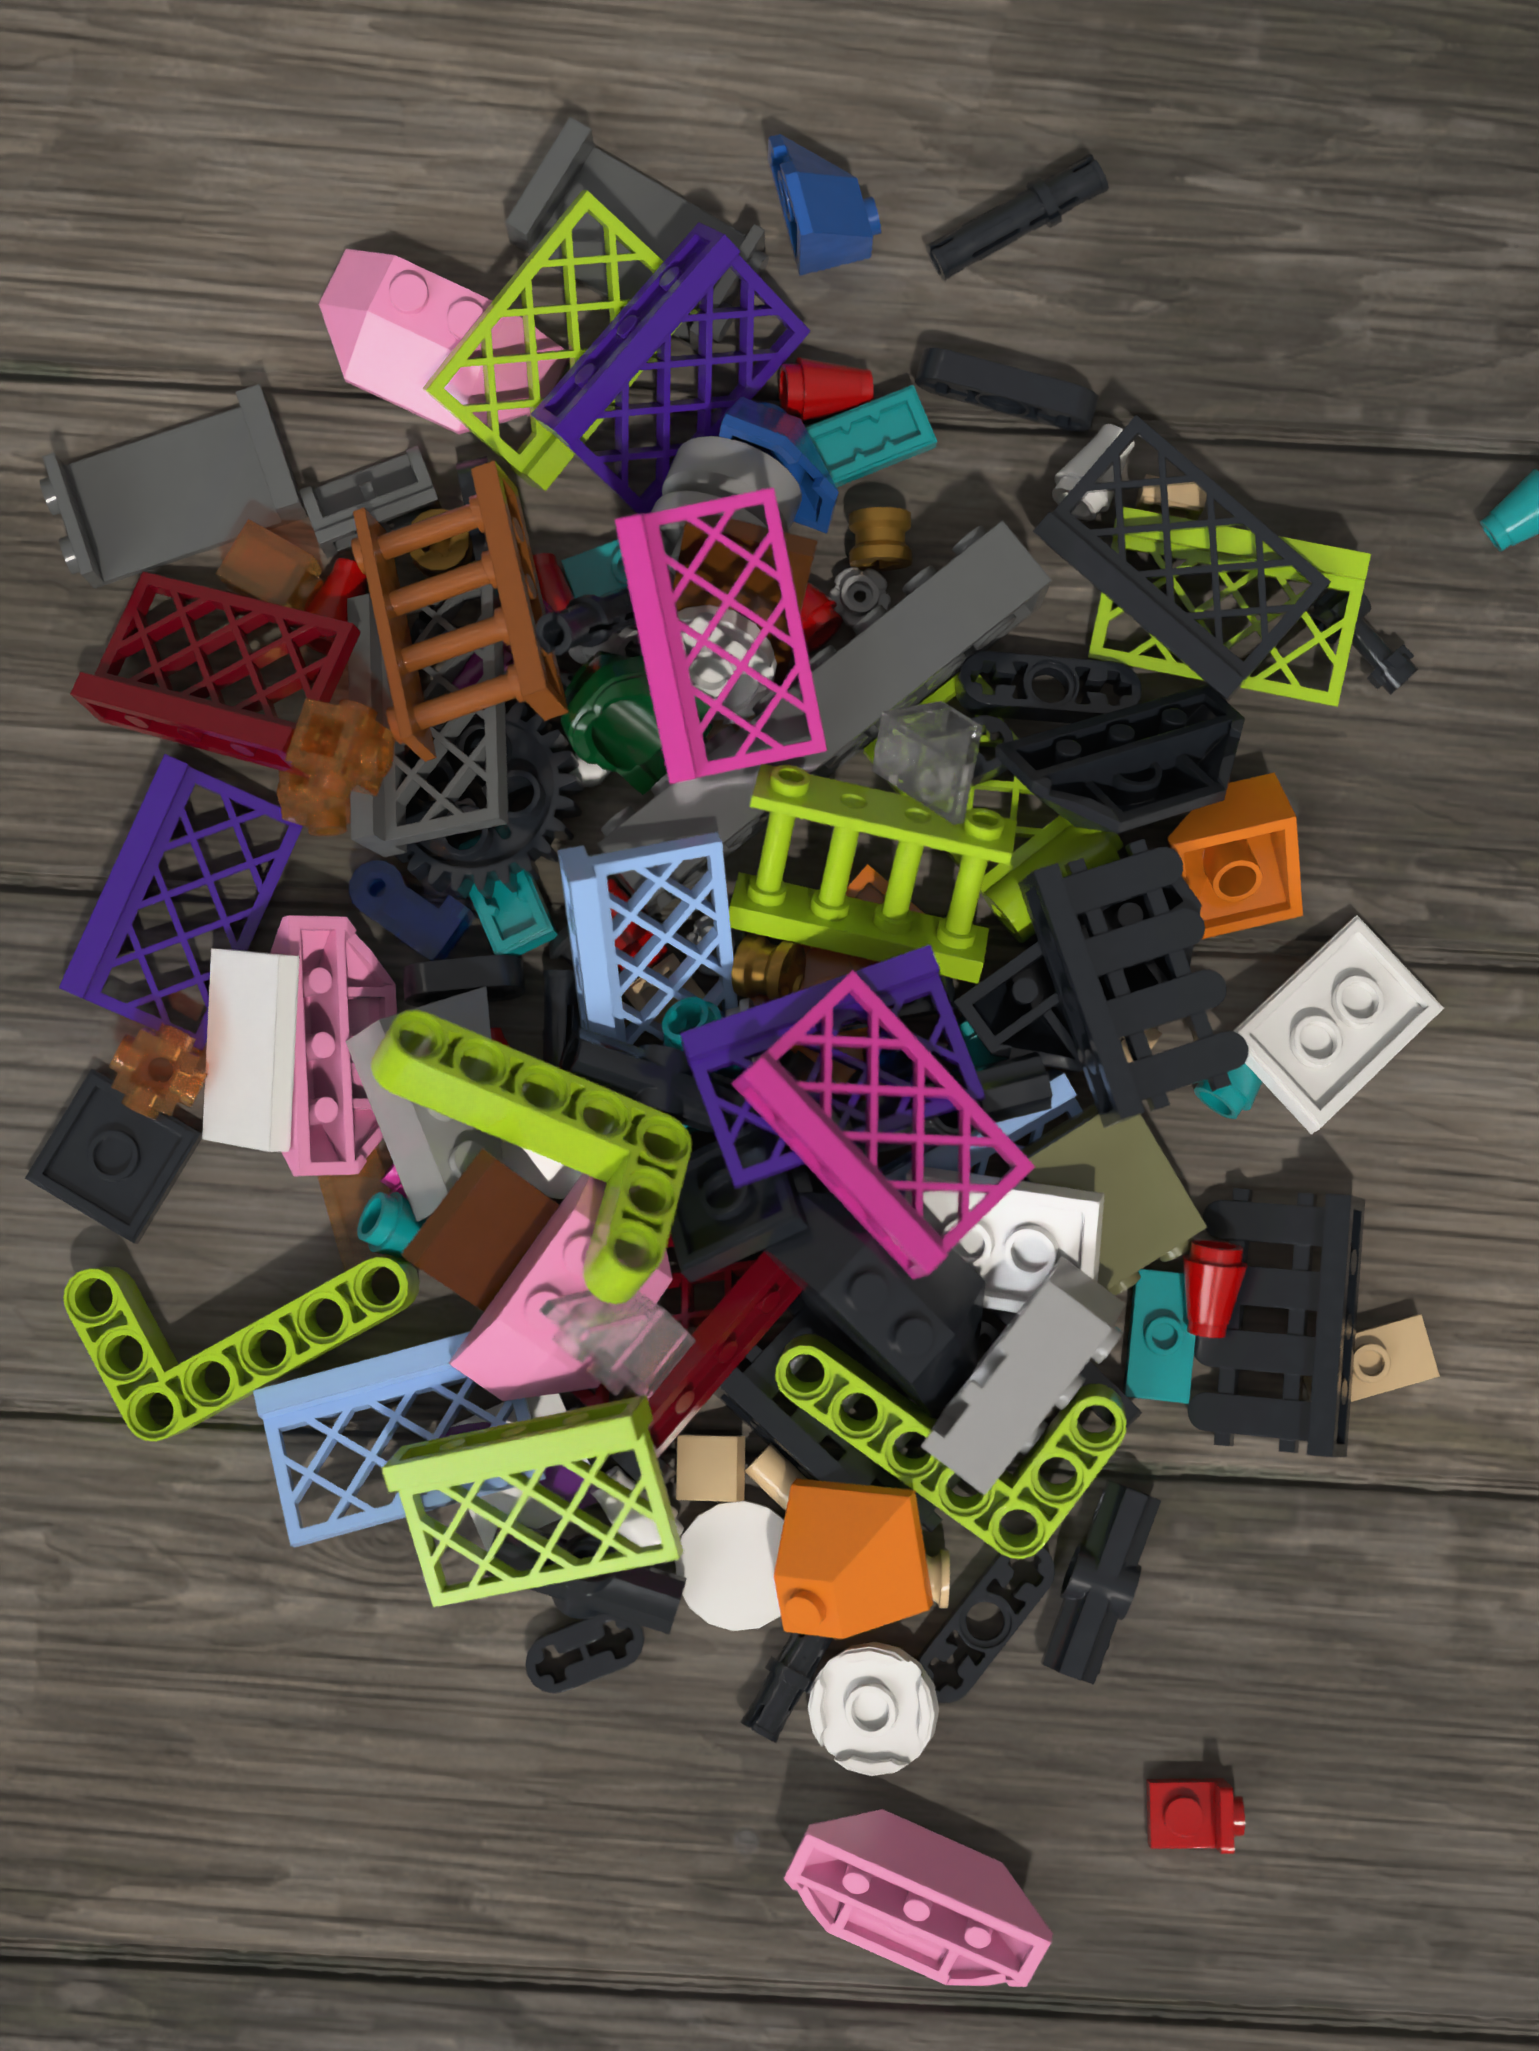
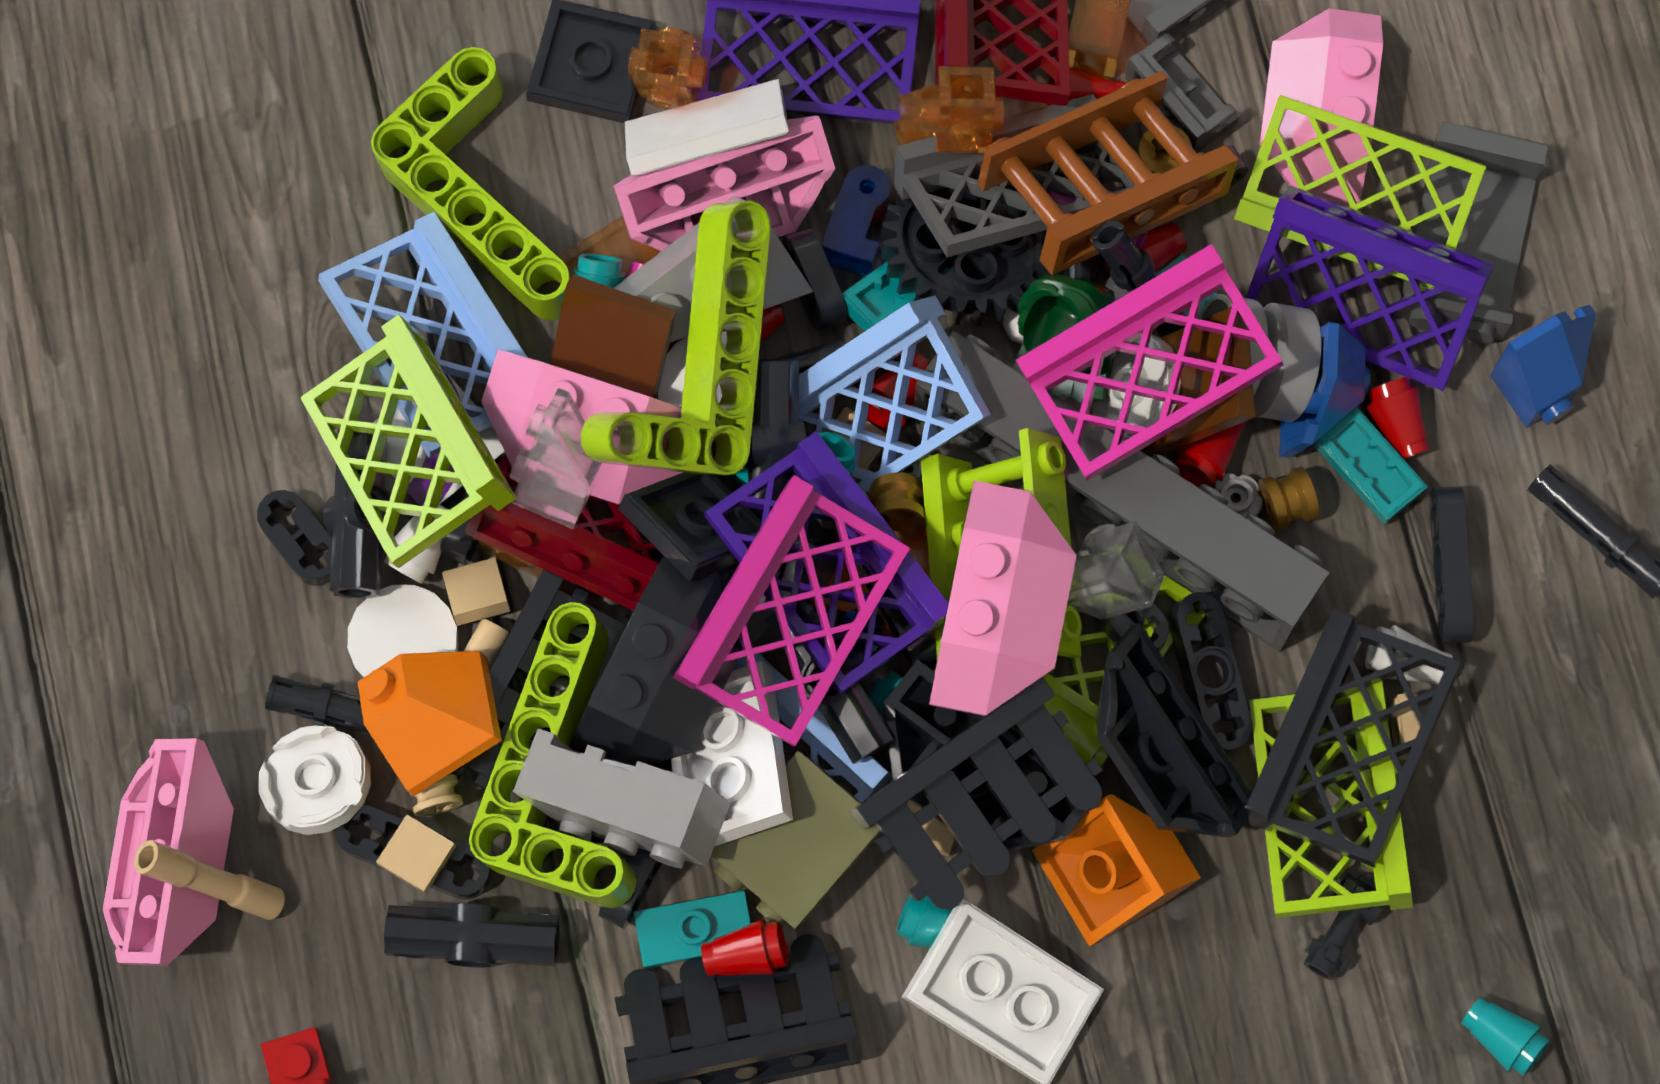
camera: 75 degrees right, 10 degrees down
(943, 886) = (1002, 602): none -> bright pink wedge
(958, 1888) = (184, 871): none -> tan piece
(996, 1619) = (416, 854): none -> tan tile

